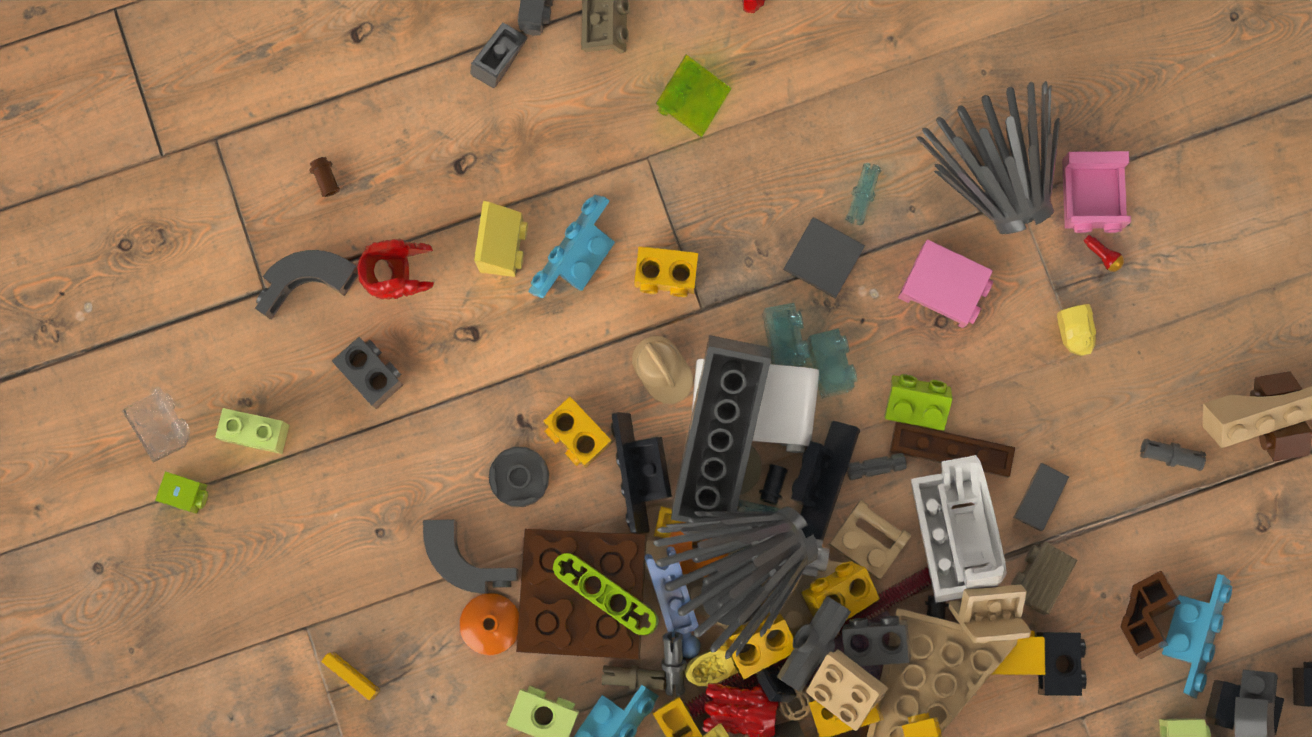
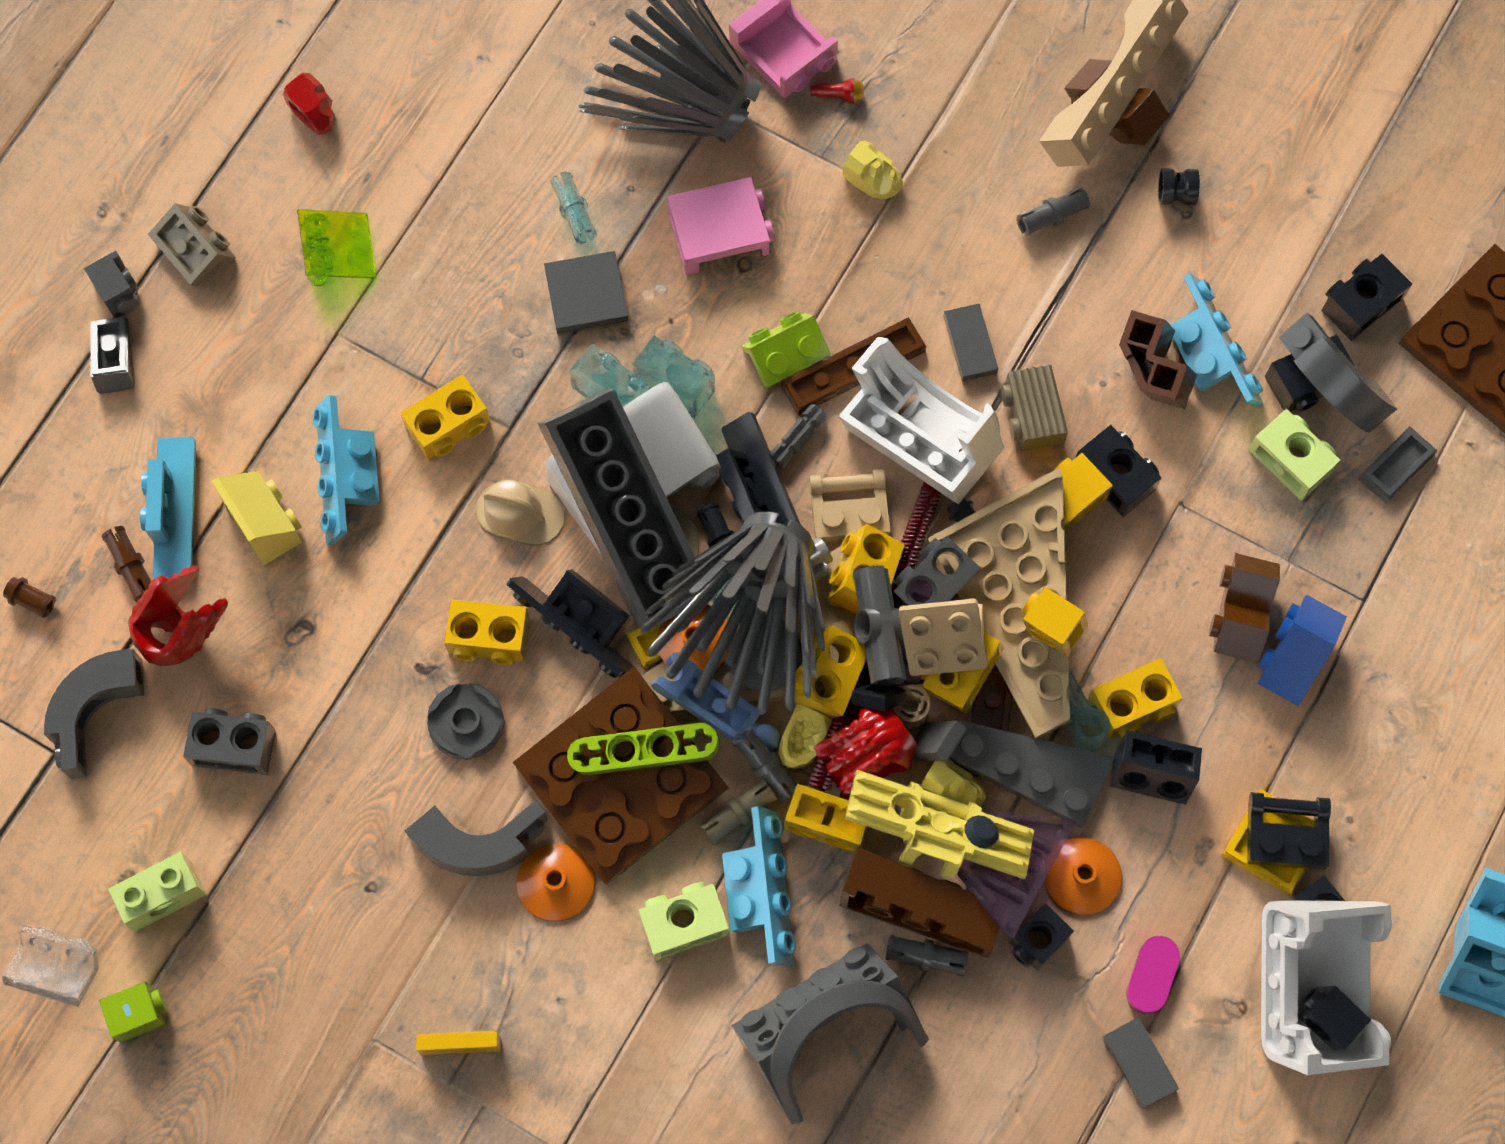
camera: 40 degrees left, 10 degrees down
(399, 205) = (128, 562): none -> reddish brown pin
(453, 188) = (170, 504): none -> medium azure bracket
(992, 613) = (1015, 463): tan bracket -> none
(1271, 507) = (1178, 186): none -> black wheel

